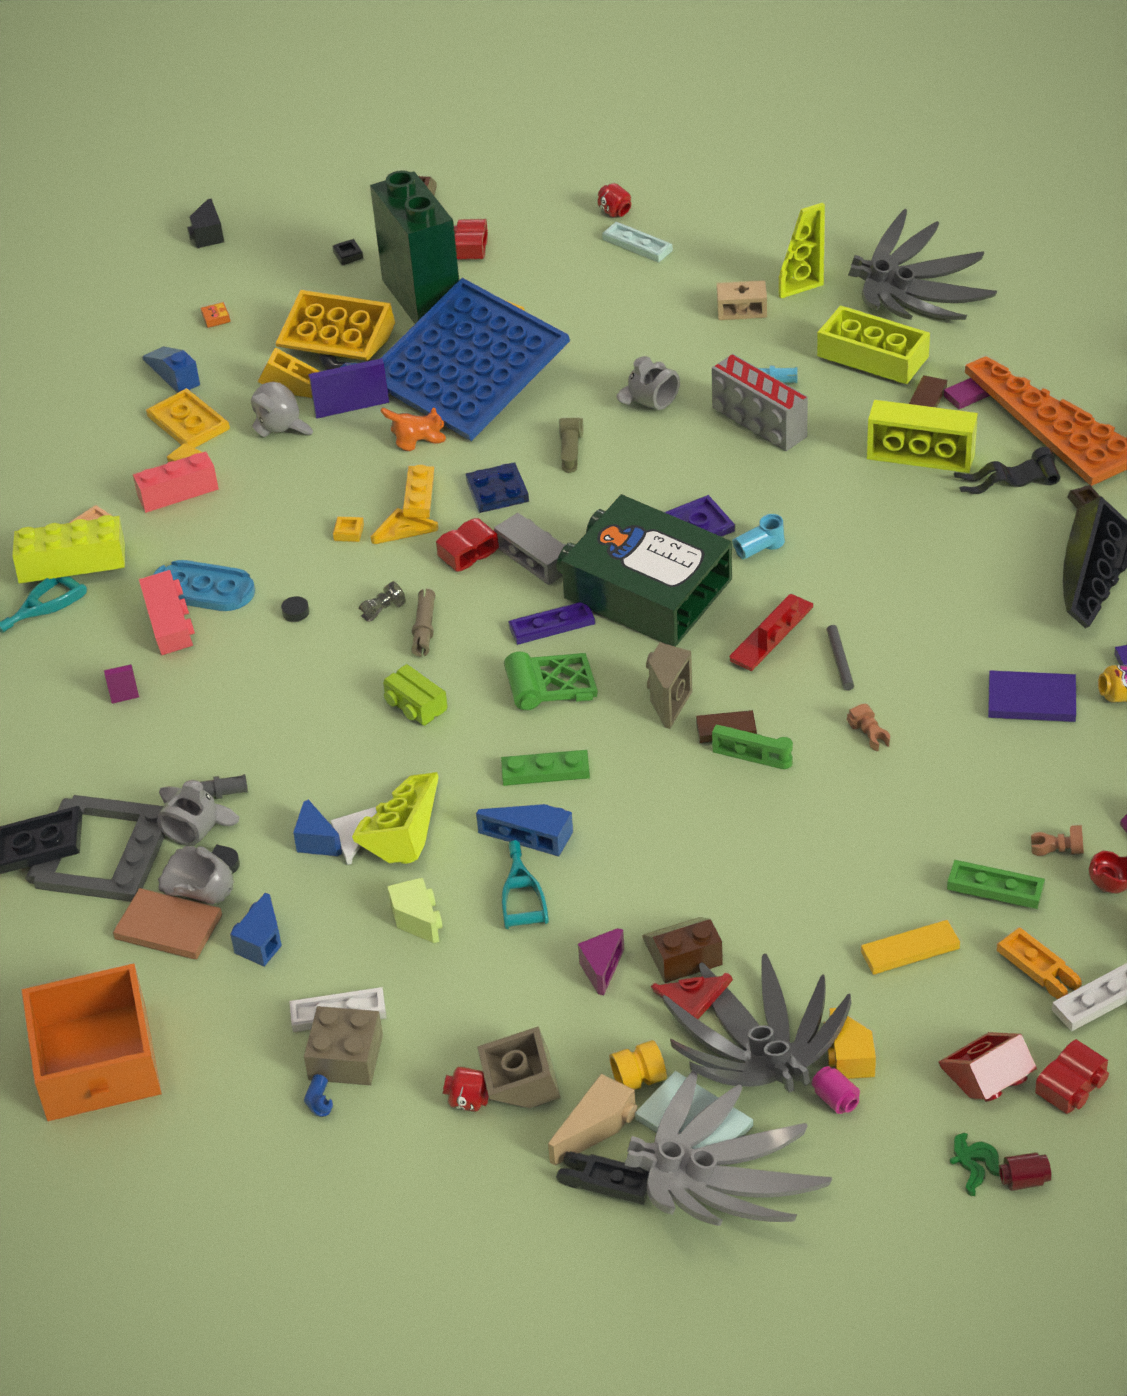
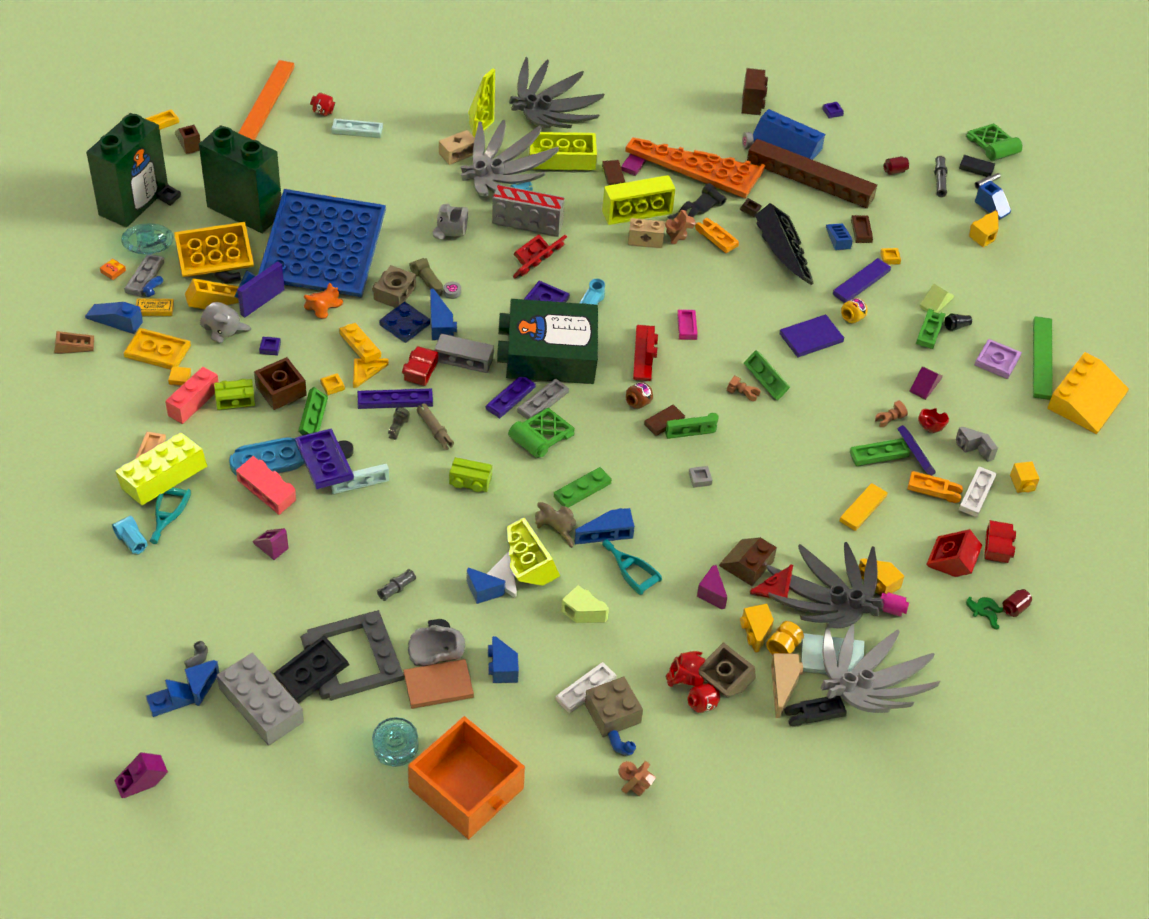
camera: 40 degrees left, 5 degrees up
(55, 959) = (395, 741): none -> clear light blue wheel
(97, 378) = (67, 342): none -> medium nougat slope
(191, 813) = (399, 608): light grey piece -> none
(205, 226) = (53, 207): black slope -> none
(223, 498) = (234, 394): none -> lime brick
(224, 371) = (156, 307): none -> yellow tile
(238, 344) = (154, 282): none -> blue arm
(244, 332) = (146, 271): none -> light grey tile
(253, 606) = (324, 458): none -> dark purple tile
(279, 294) = (147, 238): none -> clear light blue piece
(280, 503) = (280, 383): none -> reddish brown brick
(280, 647) = (364, 478): none -> light aqua tile
(290, 1141) = (638, 779): none -> nougat hips
(291, 553) = (313, 412): none -> bright green plate
(297, 199) = (127, 169): none -> dark green brick
(315, 459) = (270, 346): none -> dark purple tile
(407, 572) = (394, 398): none -> dark purple tile
(421, 165) = (164, 119): none -> yellow tile
(466, 1038) = (686, 669): none -> red helmet
(473, 790) = (560, 520): none -> dark tan animal
(516, 440) = (394, 286): none -> dark tan brick
(538, 496) = (441, 317): none -> blue slope
(549, 180) = (266, 99): none -> orange tile
(588, 469) = (452, 289): none -> light grey tile
(591, 640) = (543, 399): none -> light grey tile
(620, 1029) = (758, 625): none -> yellow slope
(669, 681) = (619, 406): dark tan slope -> none
(713, 681) = (639, 395): none -> dark orange head
(713, 815) = (700, 476): none -> light grey tile
(731, 457) = (534, 251): none -> red bracket
(767, 341) = (489, 169): none -> light grey plant
(840, 657) = (693, 353): dark grey bar -> none
(864, 618) = (687, 324): none -> dark pink tile
(902, 483) = (646, 233): none -> tan brick
(916, 721) = (767, 375): none -> bright green plate
(947, 487) = (677, 228): none -> nougat hips
(1005, 520) = (717, 235): none -> light orange hinge
(1051, 903) = (909, 439): none -> dark purple tile

